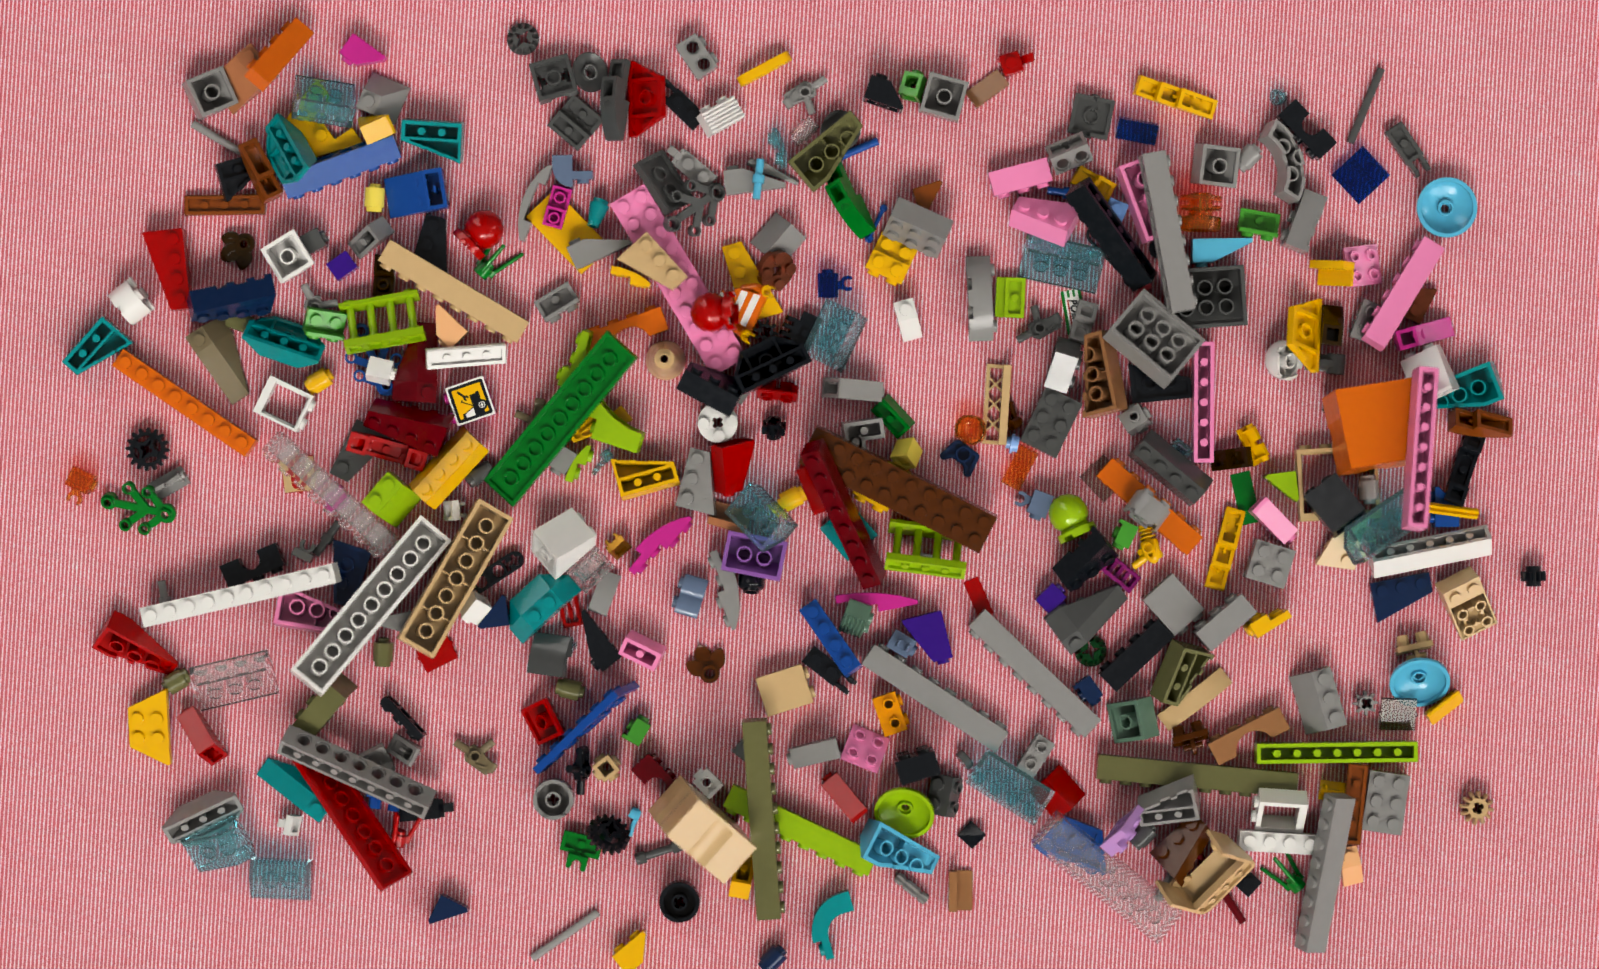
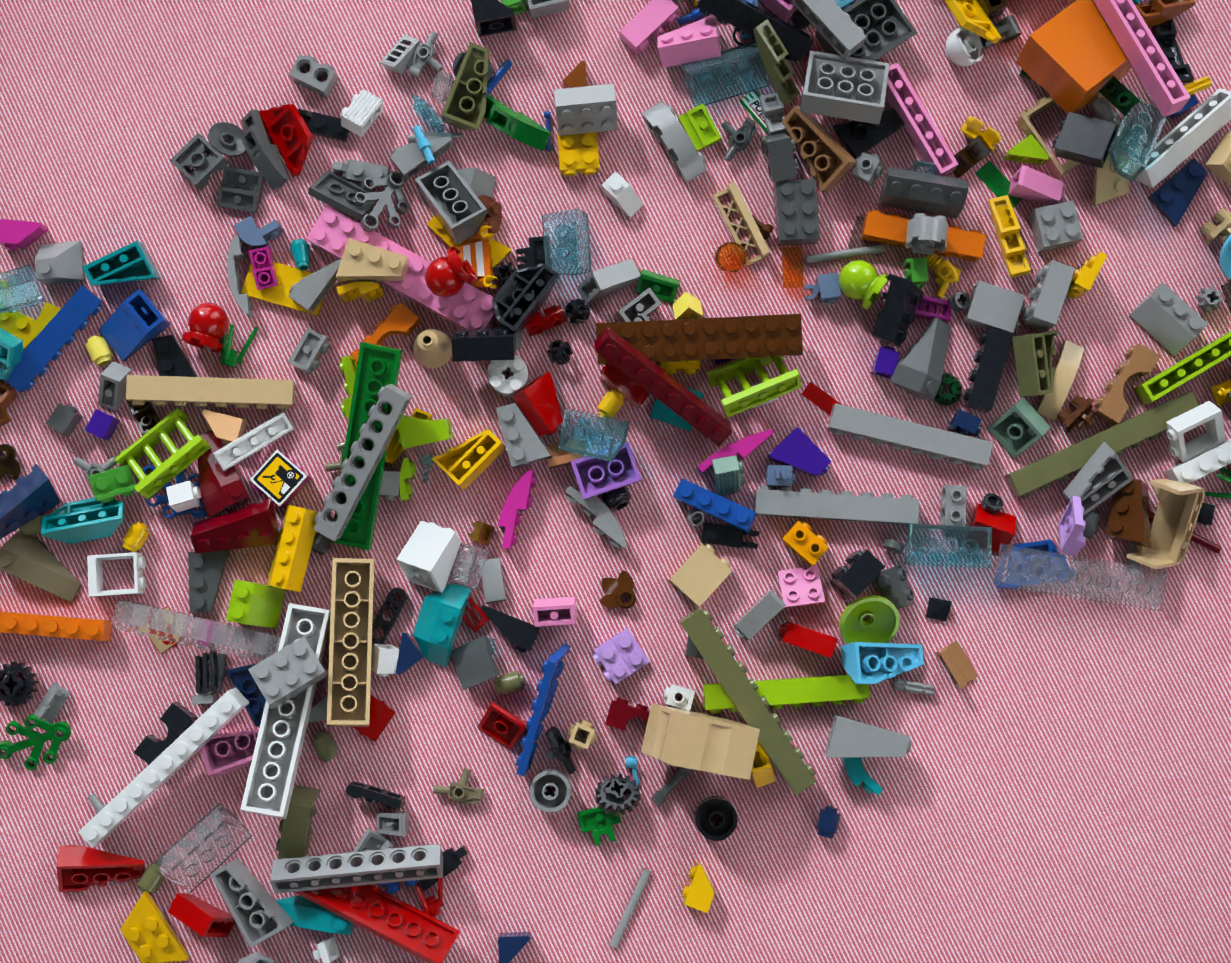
camera: 30 degrees left, 5 degrees down
(249, 749) = (250, 903): none -> light grey wedge
(287, 256) = (46, 442): white slope -> none
(320, 519) = (203, 673): none -> black tile
(375, 127) = (64, 286): yellow slope -> none
(386, 449) = (228, 563): red slope -> none
(390, 576) = (287, 672): none -> light grey brick
(452, 510) = (317, 584): white tile -> none
(524, 48) = (160, 151): dark grey gear -> none
(610, 399) = (399, 402): none -> light grey brick
(637, 730) = (590, 685): bright green brick -> none
(676, 719) = (620, 656): none -> lavender plate
(690, 595) = (570, 539): sand blue brick -> none
(754, 244) = (452, 201): none -> dark grey slope
(764, 69) = (376, 55): yellow beam -> none
(774, 78) = (392, 60): none -> light grey slope
(809, 400) = (577, 311): none -> black gear
(809, 638) = (694, 518): none -> light grey hinge
(829, 285) = (537, 203): clear blue brick -> none
(838, 905) = (860, 739): none -> light grey slope
(963, 454) = (737, 284): dark blue piece -> none
(1012, 443) = (775, 249): light blue plate -> none
(1070, 771) = (992, 503): none -> black tile
(1073, 482) = (845, 253): none -> light grey bar
(1107, 281) = (773, 57): none -> olive slope
(1153, 581) = (953, 301): none -> dark grey bush
(1386, 484) = (1119, 96): none -> dark green hips

